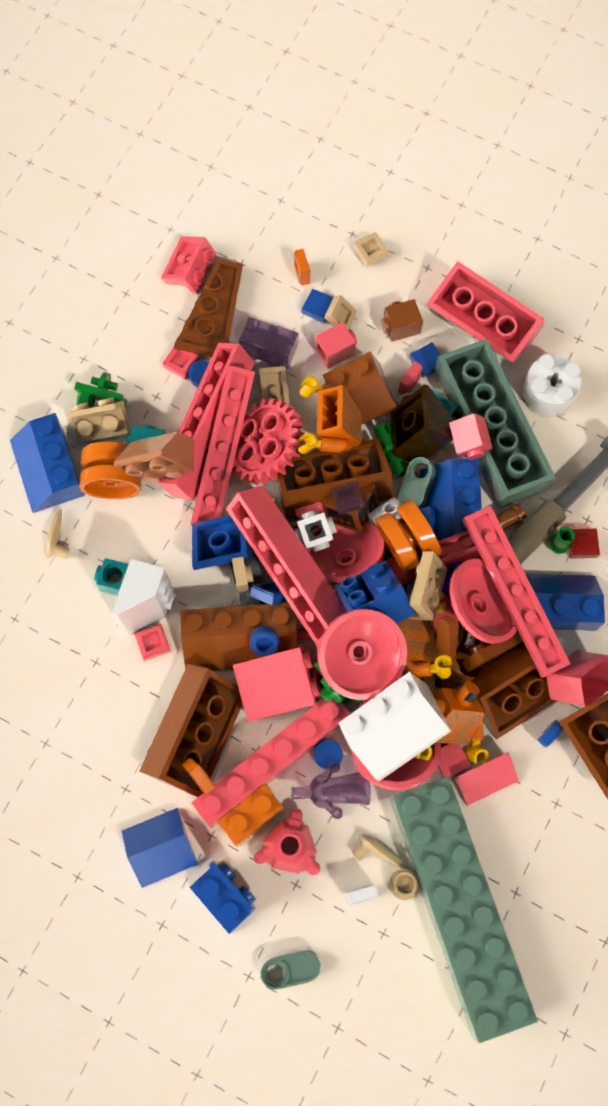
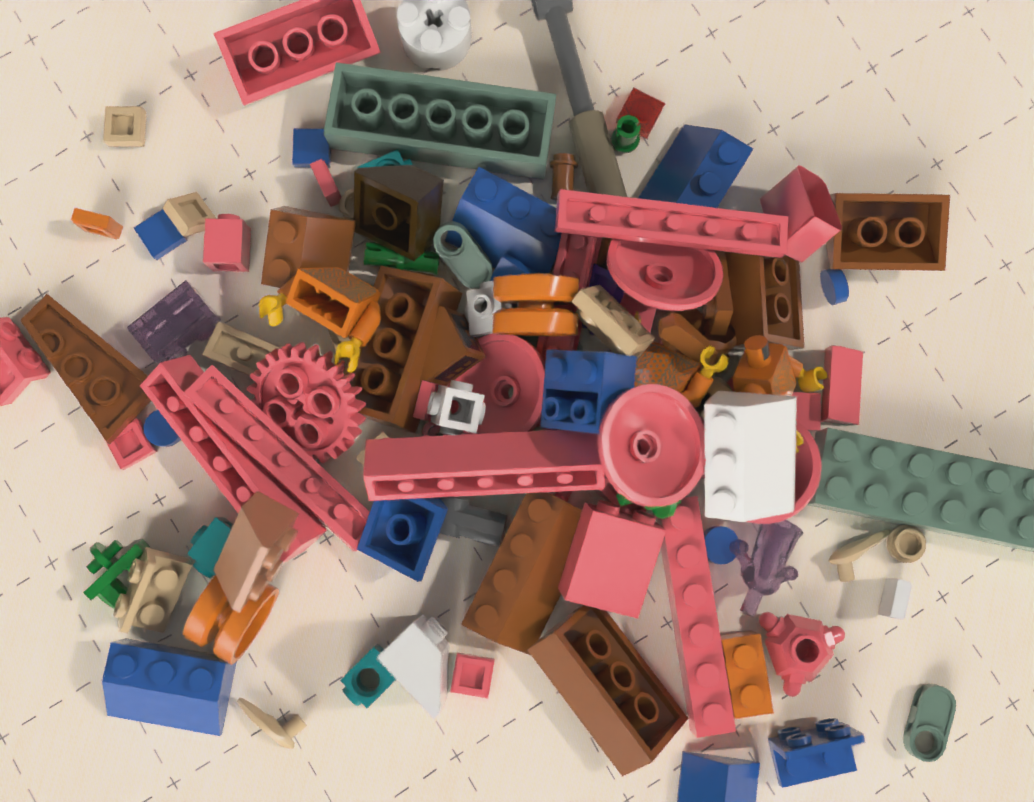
camera: 60 degrees left, 10 degrees up
(198, 775) = (672, 712): orange tile -> none
(242, 574) = (461, 526): tan plate -> none
(264, 641) = (556, 545): blue tile -> none
(267, 592) = (499, 509): blue tile -> none
(348, 497) = (441, 346): tile -> none
(402, 320) = (243, 146): dark orange brick -> none
(471, 436) = (452, 158): brick -> none

